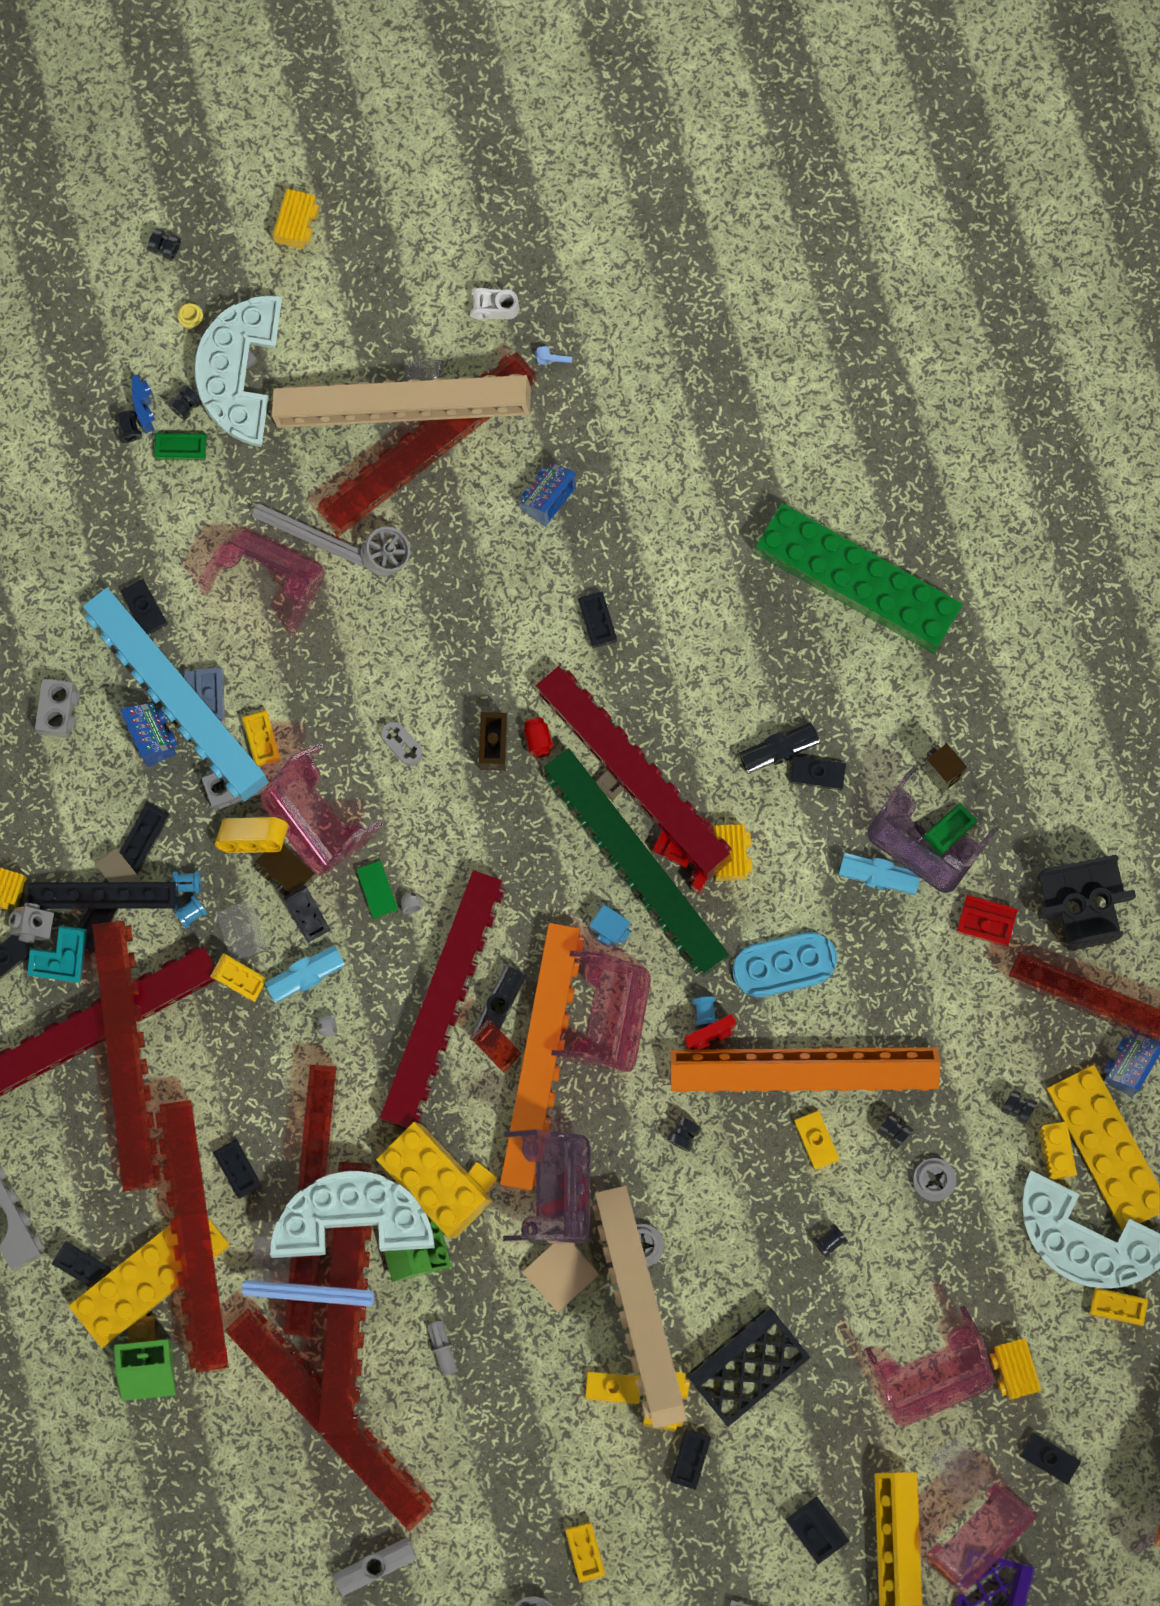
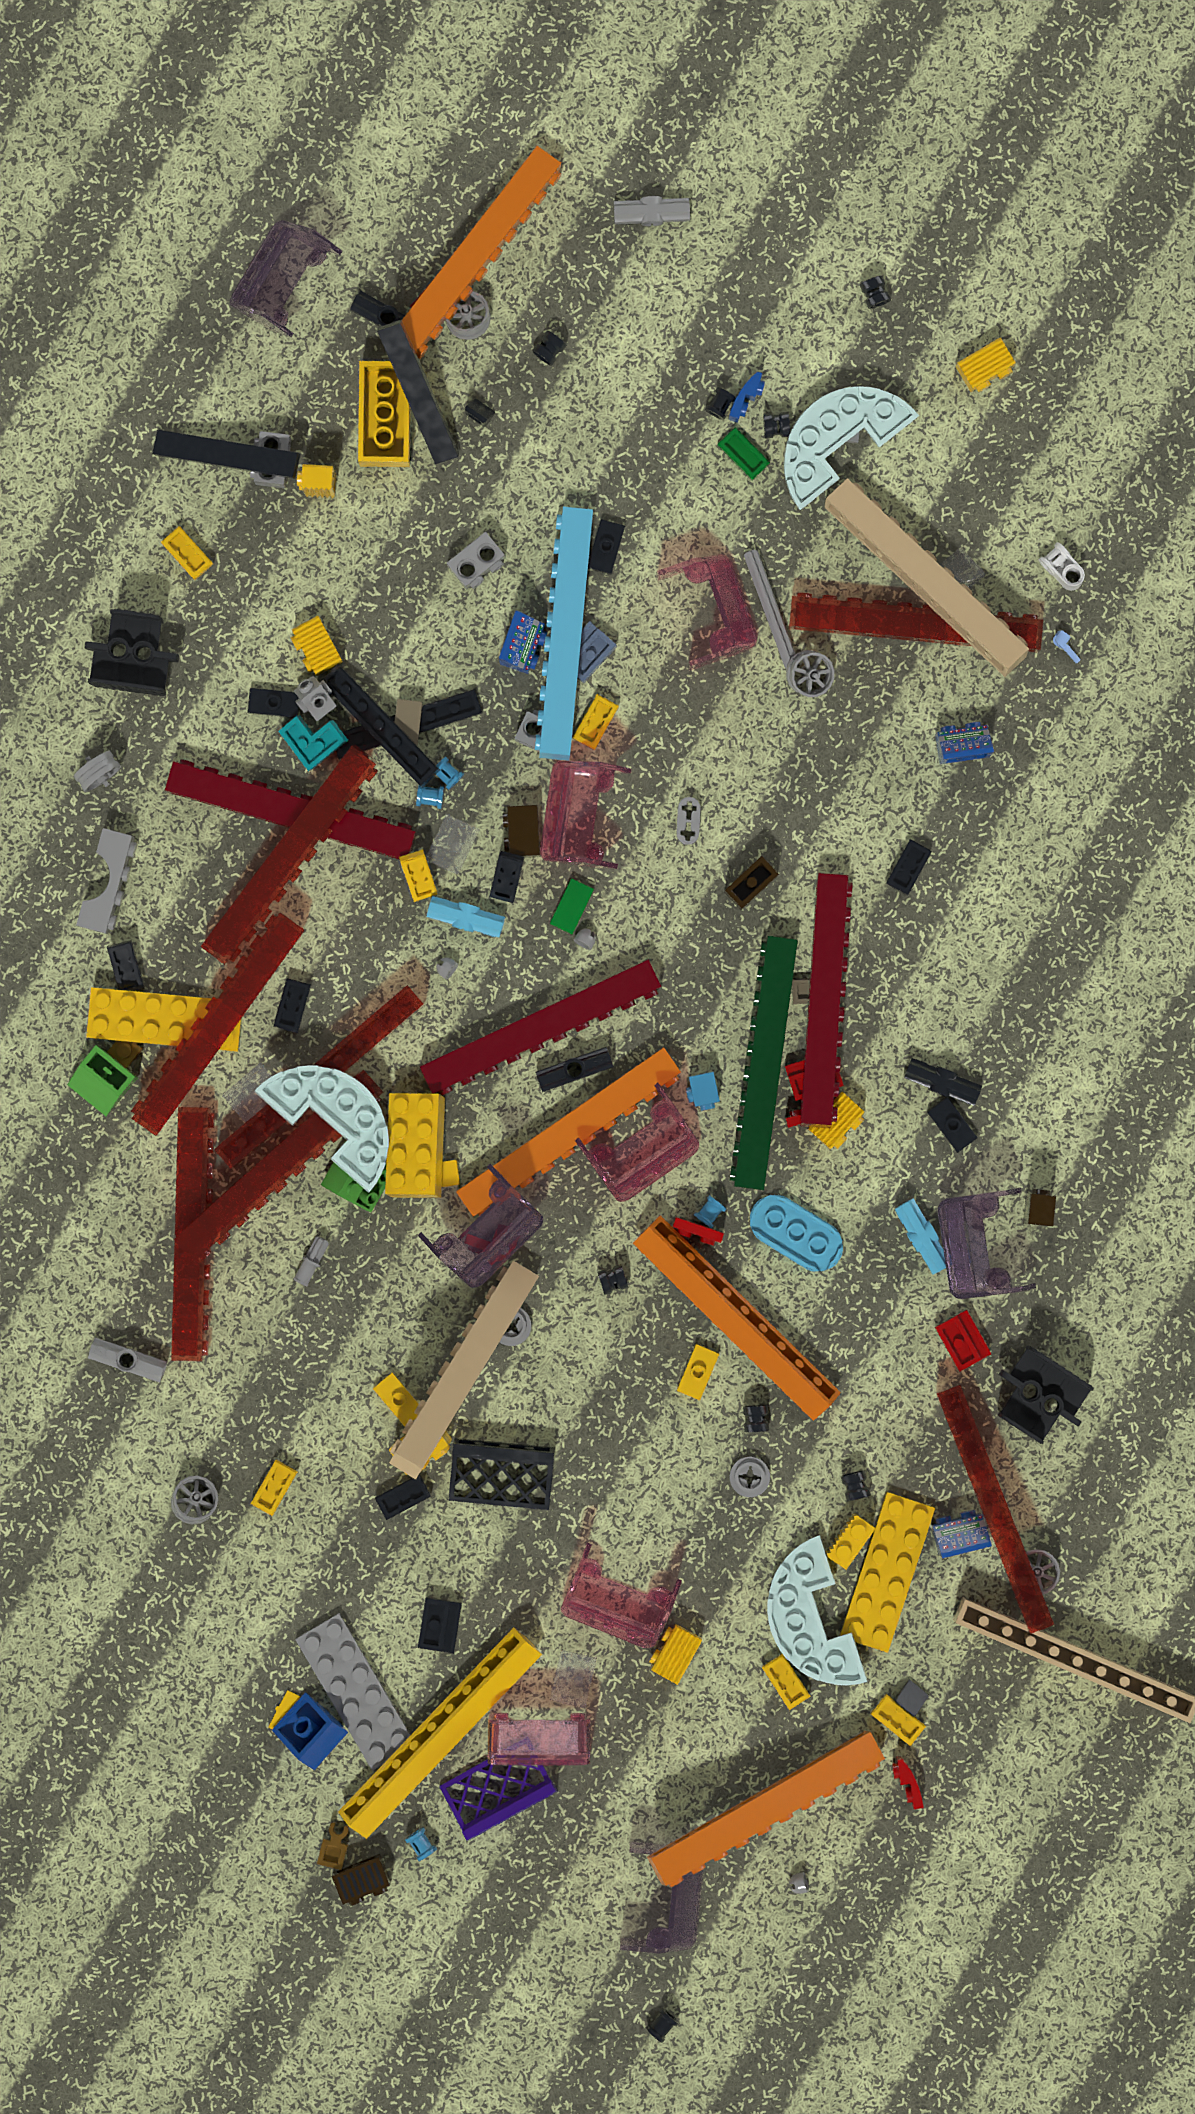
camera: 45 degrees right, 10 degrees up
(190, 316) = (842, 363): light yellow plate -> none
(251, 835) = (522, 785): yellow beam -> none
(308, 1293) = (256, 1139): light blue axle -> none
(495, 1046) = (545, 1095): clear red tile -> none
(538, 737) = (785, 910): red brick -> none
(561, 1274) = (437, 1291): tan slope -> none
(830, 1241) = (638, 1447): black bush -> none
(858, 578) = (1117, 1018): green brick -> none
(950, 829) = (1002, 1253): green tile -> none
(1050, 1458) = (639, 1732): black plate -> none

